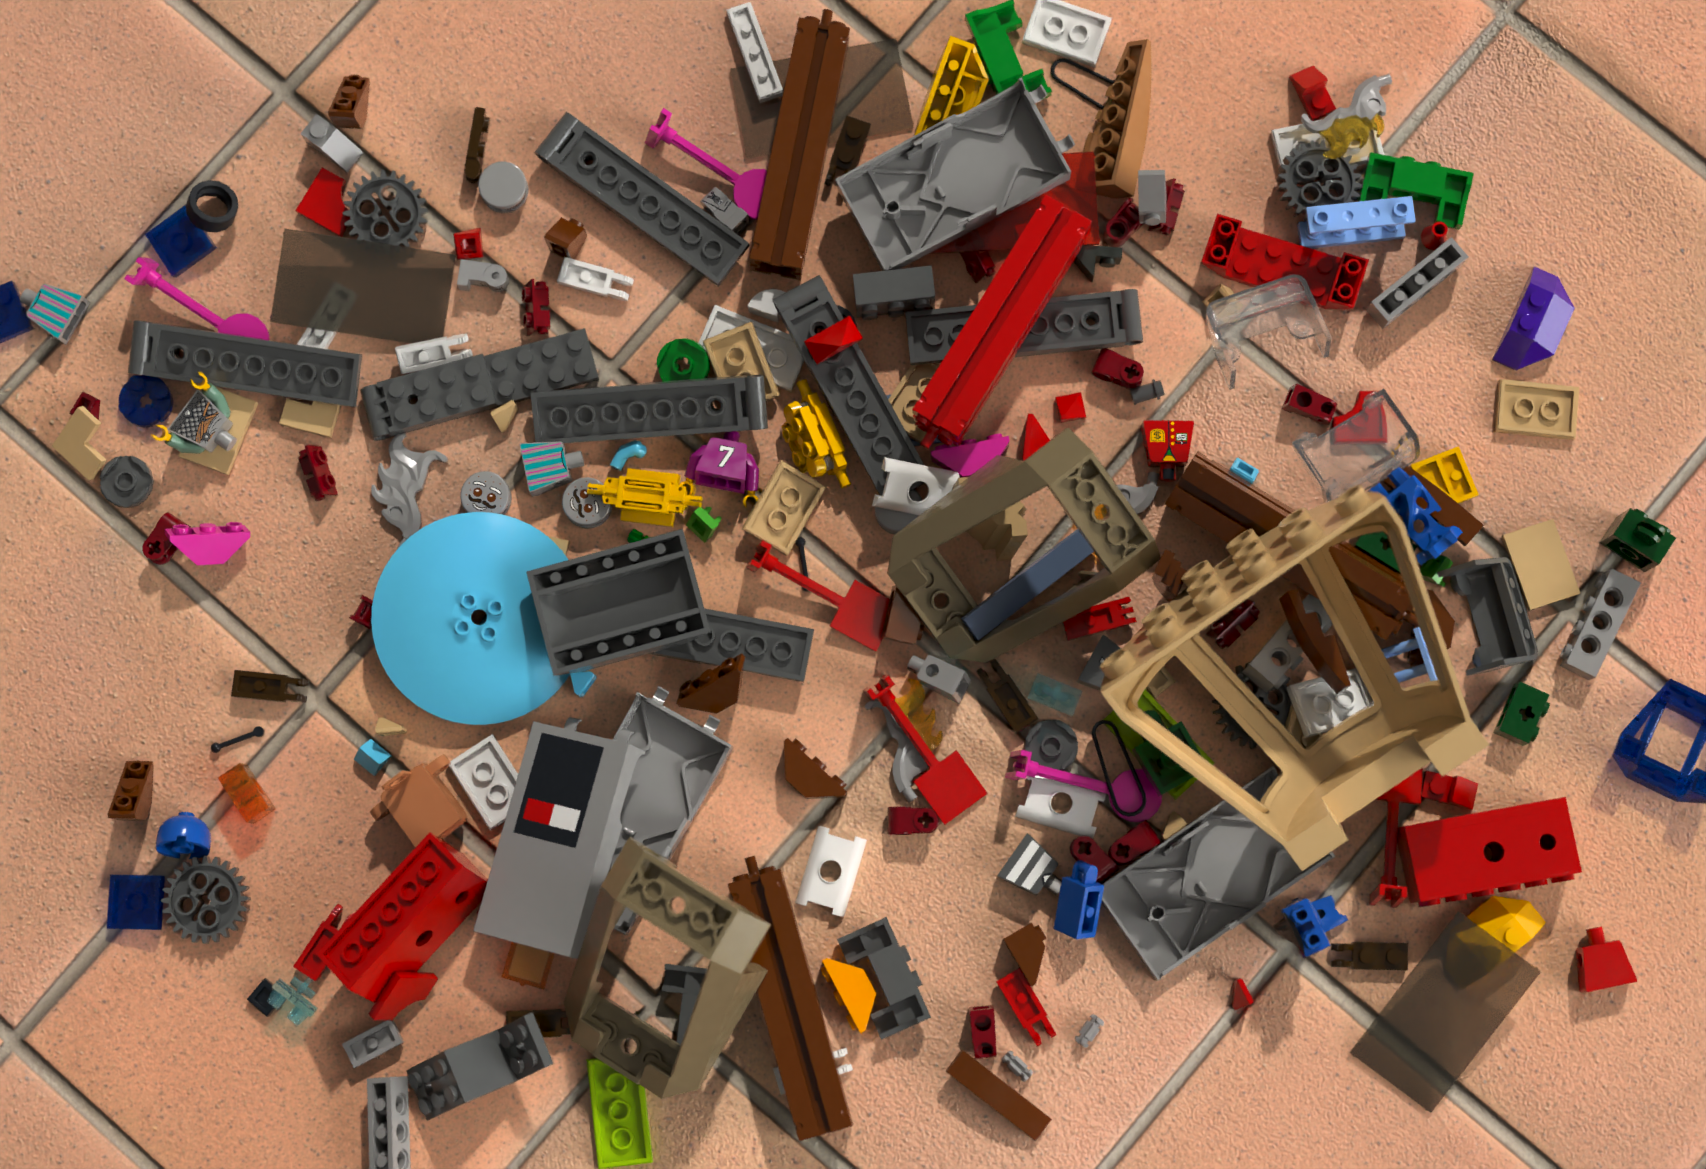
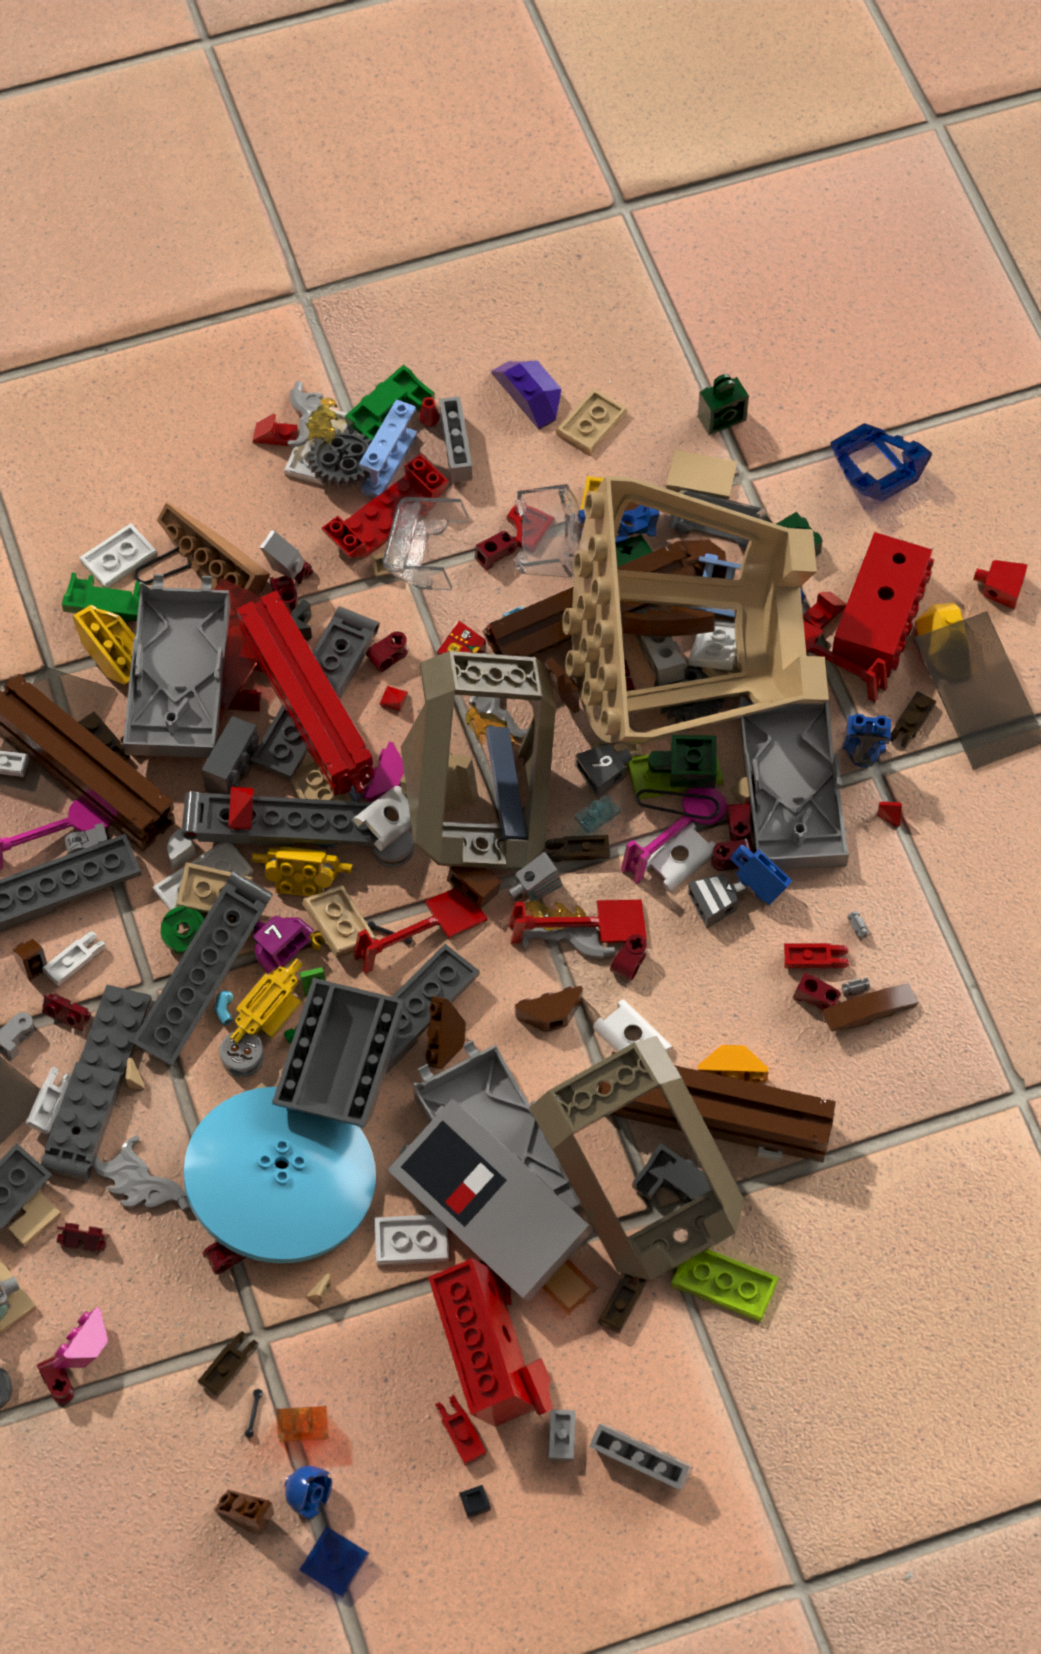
camera: 65 degrees left, 20 degrees down
(226, 912) = (347, 1513): dark grey gear -> none
(283, 992) = (489, 1470): clear light blue hips -> none
(372, 757) = (335, 1318): medium azure slope -> none
(421, 802) = (399, 1291): nougat piece -> none
(479, 1066) = (630, 1355): dark grey bracket -> none
(486, 493) = (183, 1120): light grey head -> none
(548, 465) = (193, 1065): light grey torso -> none
(582, 682) = (376, 1130): medium azure slope -> none
(893, 973) = (736, 1028): dark grey bracket -> none
(1027, 950) = (774, 931): reddish brown slope -> none
(1034, 437) = (395, 729): red slope -> none
(1052, 744) = (631, 830): dark grey tile -> none
(1099, 619) = (562, 758): red hinge -> none
(1147, 392) = (418, 638): dark grey pin -> none
(1432, 566) = (664, 535): bright green tile -> none
(1623, 591) = (763, 449): light grey brick -> none

